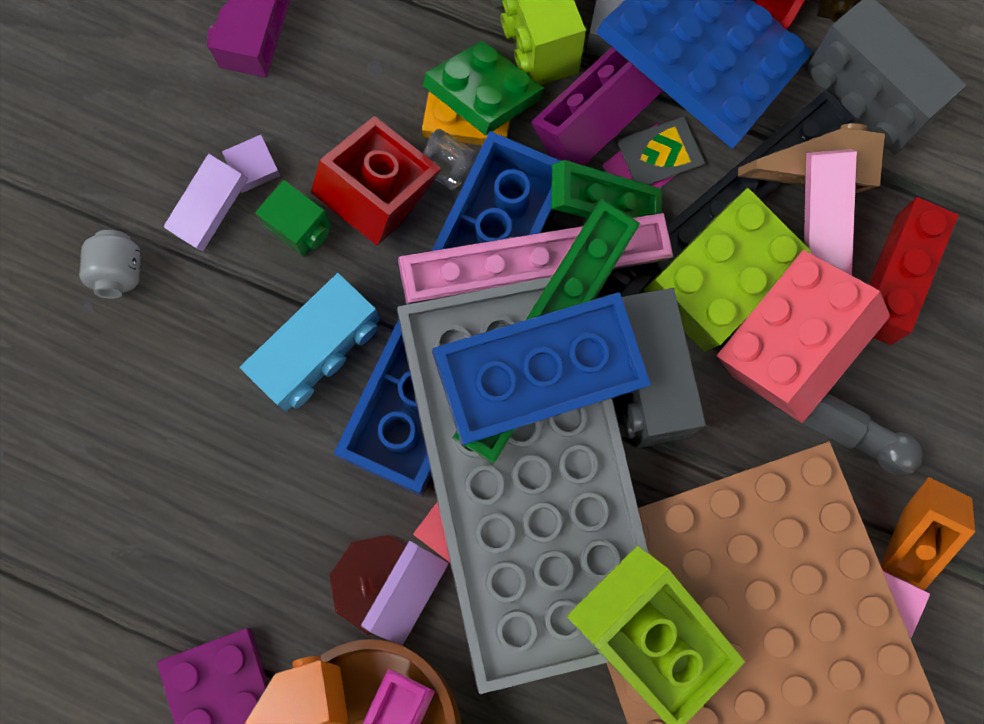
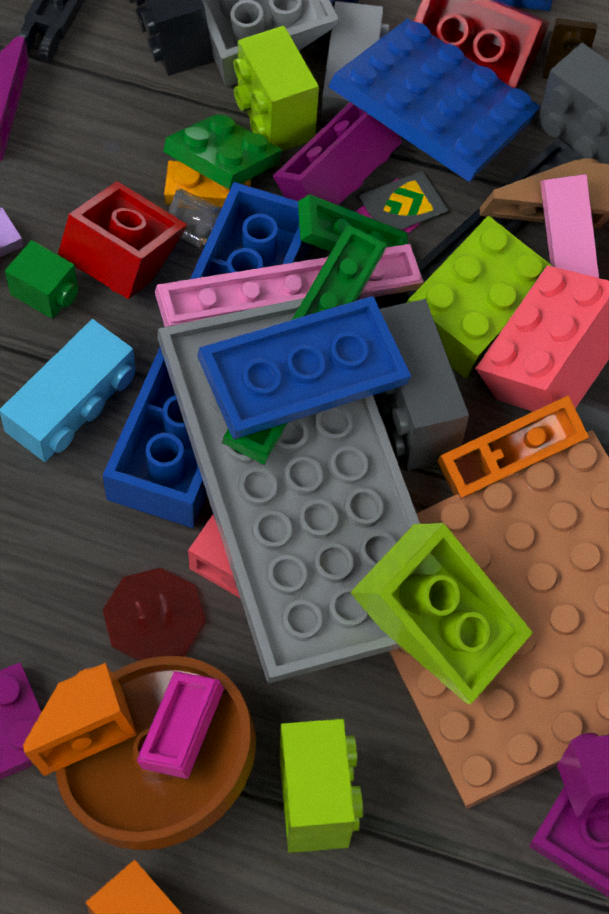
camera: 10 degrees left, 15 degrees down
(405, 594) = (184, 610): lavender tile -> none
(745, 452) = (512, 447): none -> orange slope

